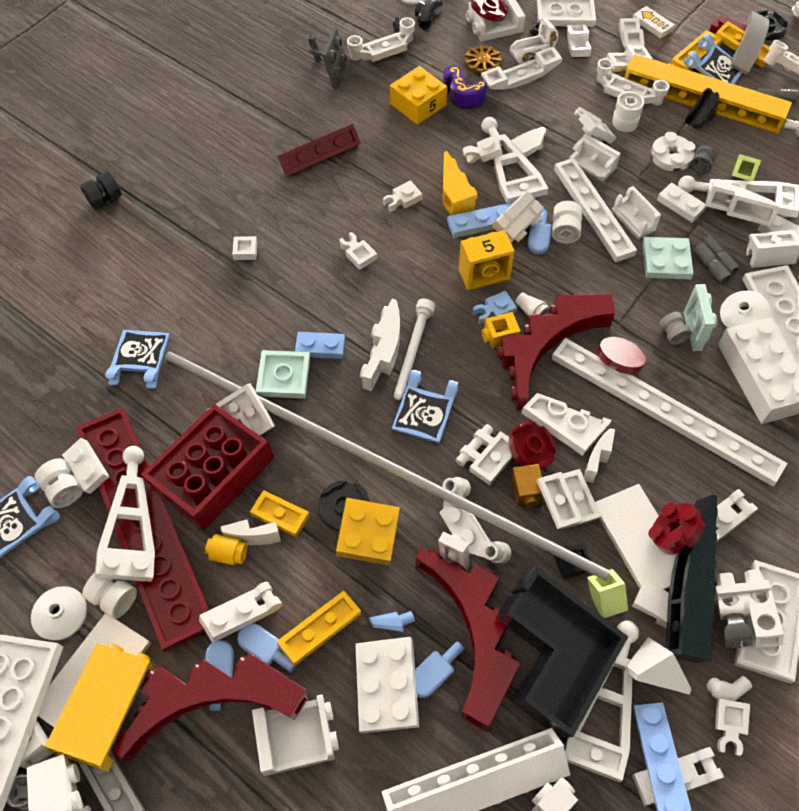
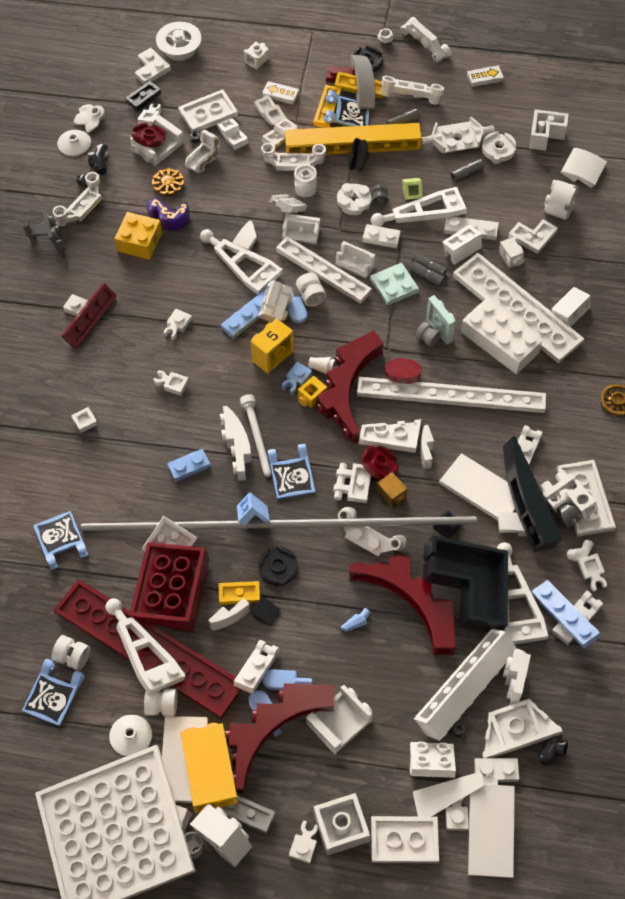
camera: 30 degrees left, 0 degrees up
(85, 466) = (82, 631): white plate -> none
(226, 550) = (219, 634): yellow brick -> none
(283, 374) = (177, 498): light aqua plate -> none
(295, 551) = (265, 611): none -> black slope
(312, 133) = (74, 305): none -> white plate
(318, 628) = (313, 649): yellow plate -> none
(355, 424) = (252, 506): none -> light blue panel
(367, 531) = (308, 572): yellow brick -> none
(386, 685) = (377, 659): white plate -> none
(435, 670) = (401, 637): light blue piece -> none
(454, 549) = (372, 553): white plate -> none
(457, 192) = (216, 302): yellow slope -> none
(486, 150) = (219, 258): white plate -> none
(524, 73) = (206, 180): white slope -> none
(568, 499) = (423, 485): white slope -> none
(608, 595) = (480, 533): yellowish green brick -> none
(657, 667) = (534, 559): white slope -> none
(664, 529) = (495, 462): dark red plate -> none
(732, 314) = (461, 307): white dish -> none
(741, 203) = (424, 220): white slope -> none

